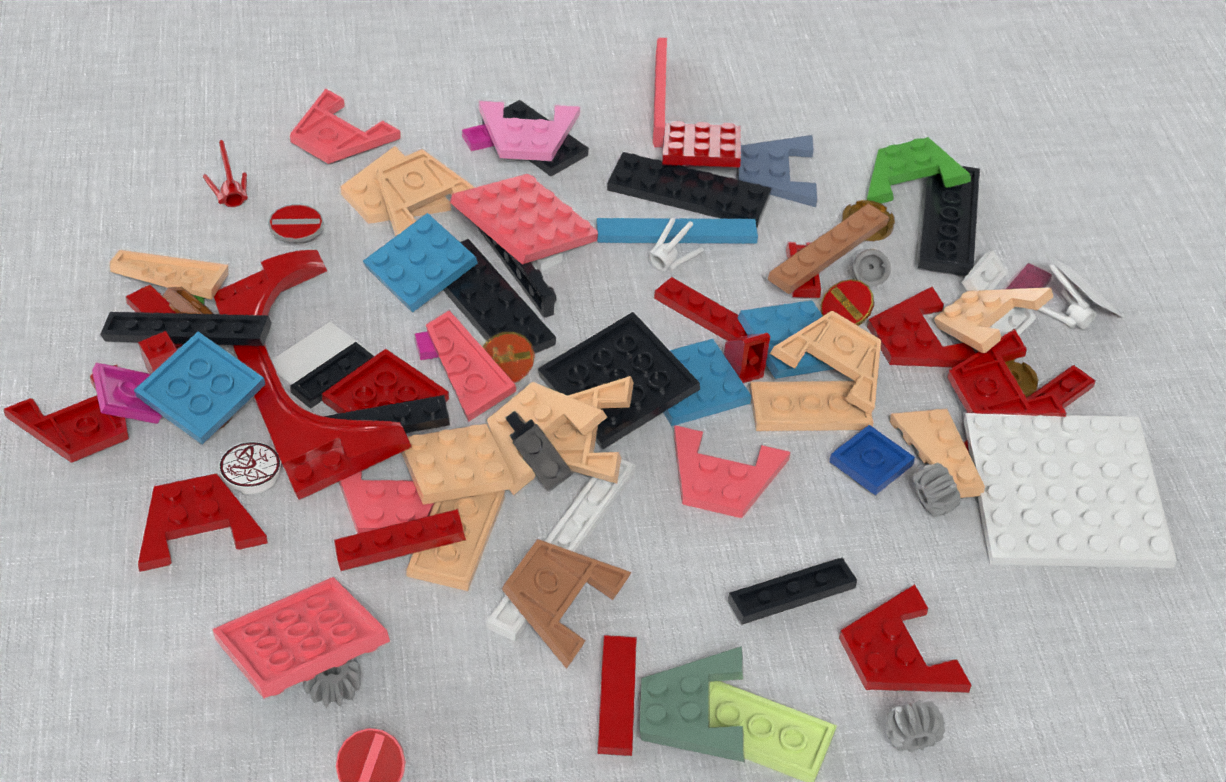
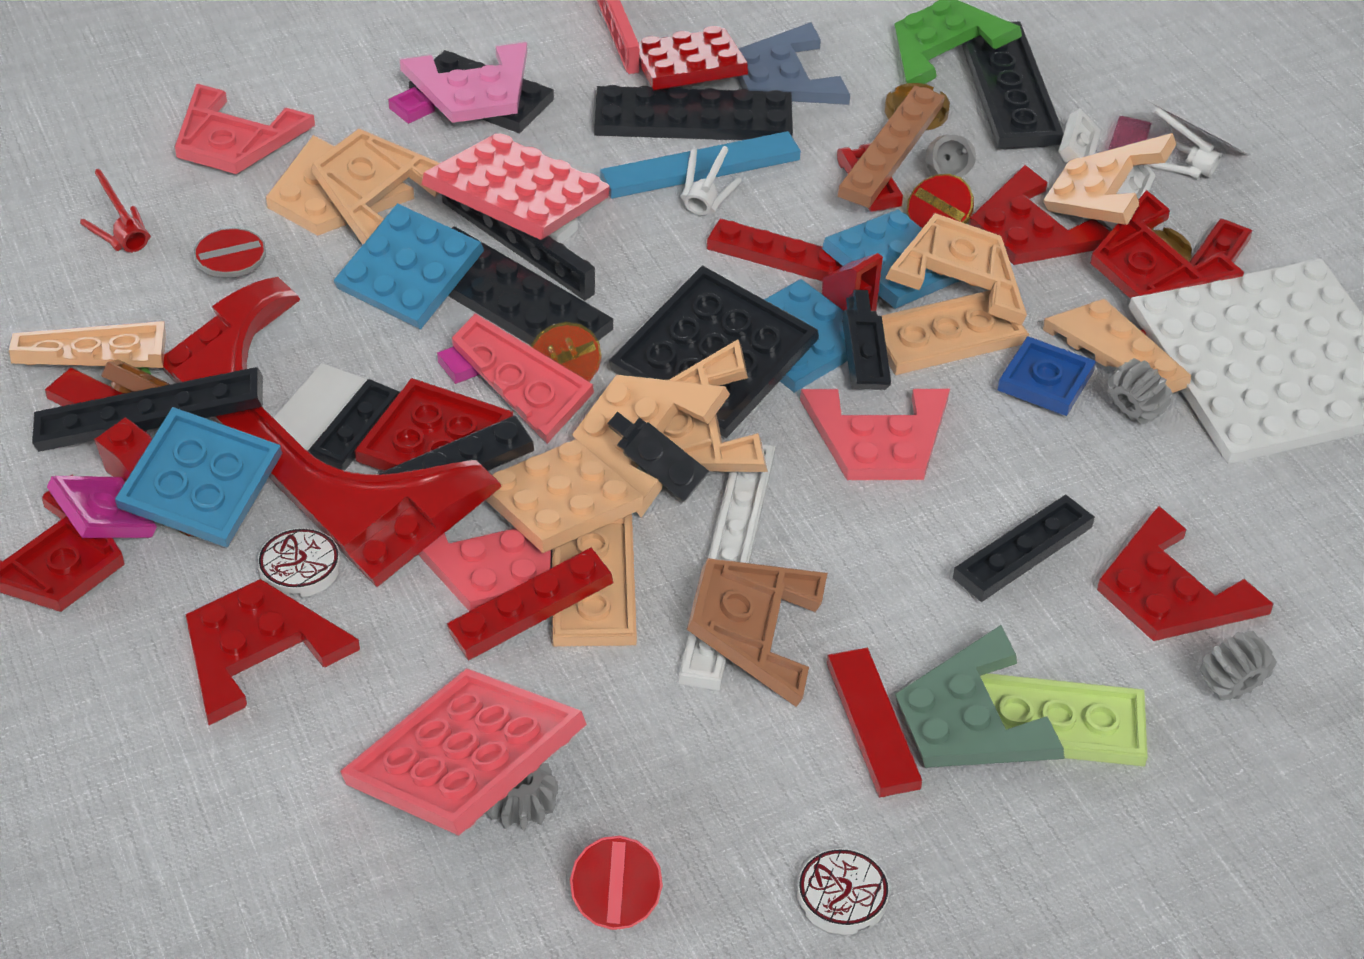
camera: 15 degrees left, 0 degrees up
(736, 402) = (865, 344): none -> black hinge

